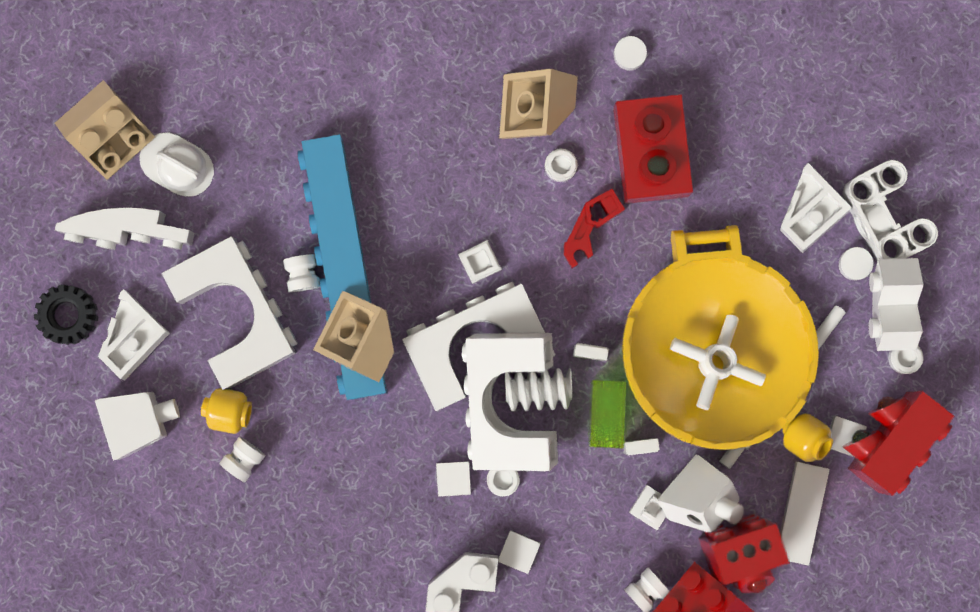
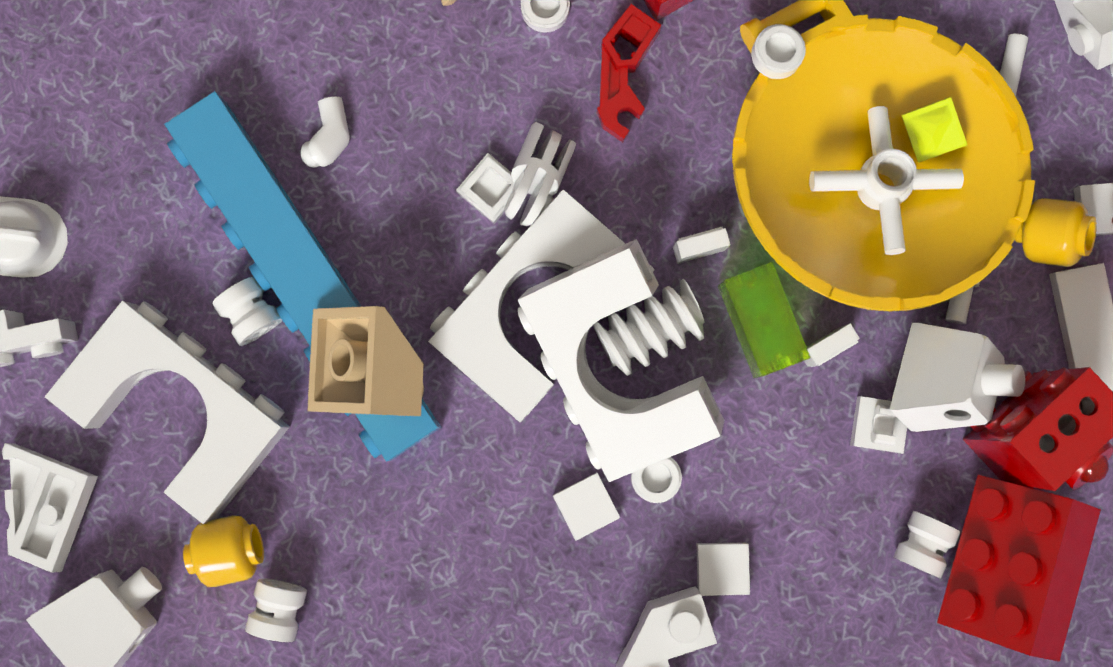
camera: 20 degrees left, 0 degrees up
(395, 190) = (332, 136): none -> white arm
(510, 267) = (537, 174): none -> white arm
(685, 257) = (778, 51): none -> white tile
(761, 344) = (934, 129): none -> neon yellow tile

